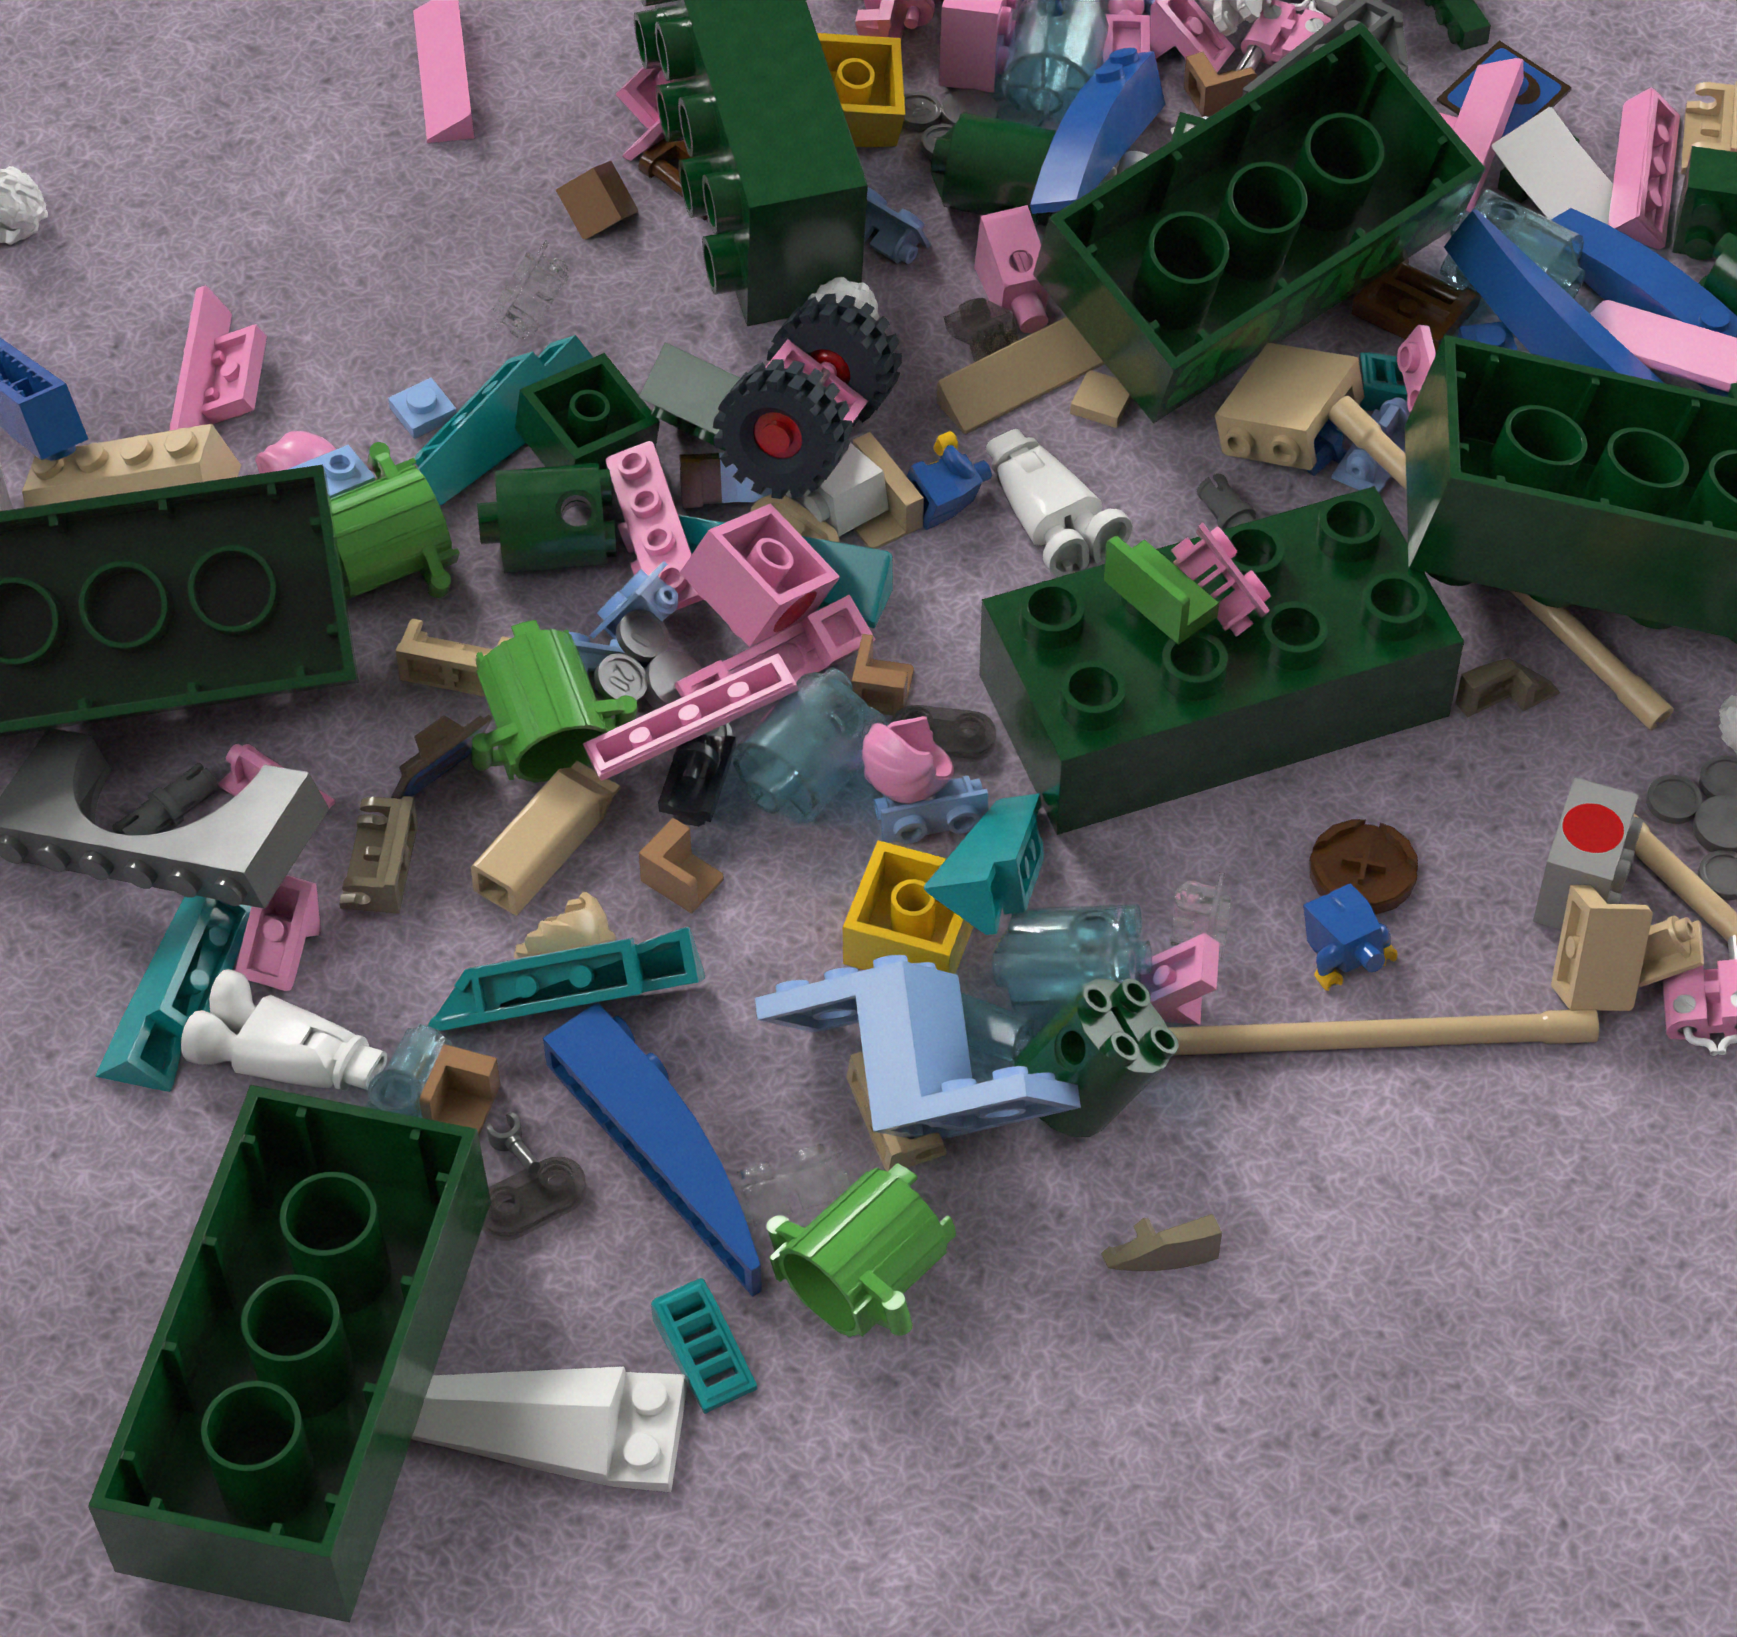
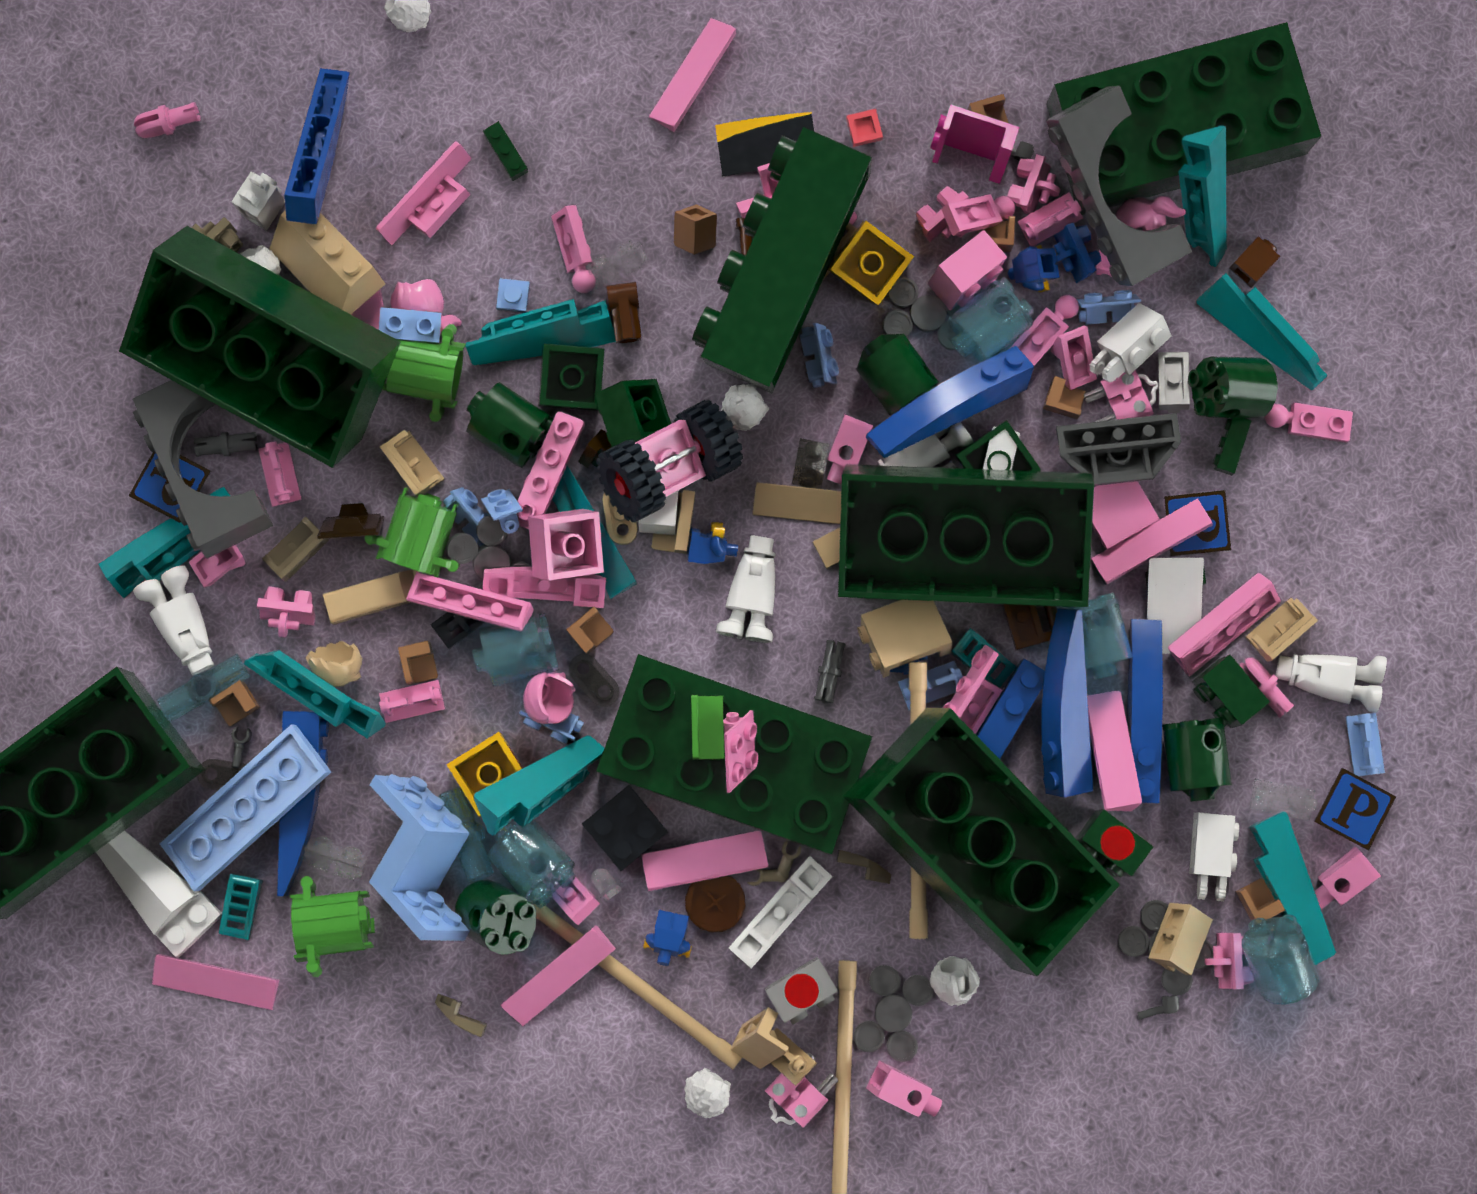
camera: 35 degrees right, 30 degrees up
(118, 914) = (151, 487): none -> blue piece
(272, 273) = (505, 151): none -> dark green piece
(433, 933) = (286, 614): none -> bright pink hips
(457, 306) = (574, 247): none -> bright pink plate
(583, 316) = (624, 304): none -> reddish brown piece
(586, 86) = (752, 142): none -> black sticker
(598, 1194) = (245, 807): none -> light blue plate
(725, 915) = (411, 701): none -> bright pink hinge
(756, 1474) = (215, 981): none -> bright pink slope
(1154, 847) = (625, 828): none -> black brick
(1250, 1091) = (558, 976): none -> bright pink slope
(1299, 821) = (704, 860): none -> bright pink slope
(1412, 776) = (780, 874): none -> dark tan arm
(1458, 805) = (780, 912): none -> white slope
(1599, 1077) = (707, 1093): none -> white piece

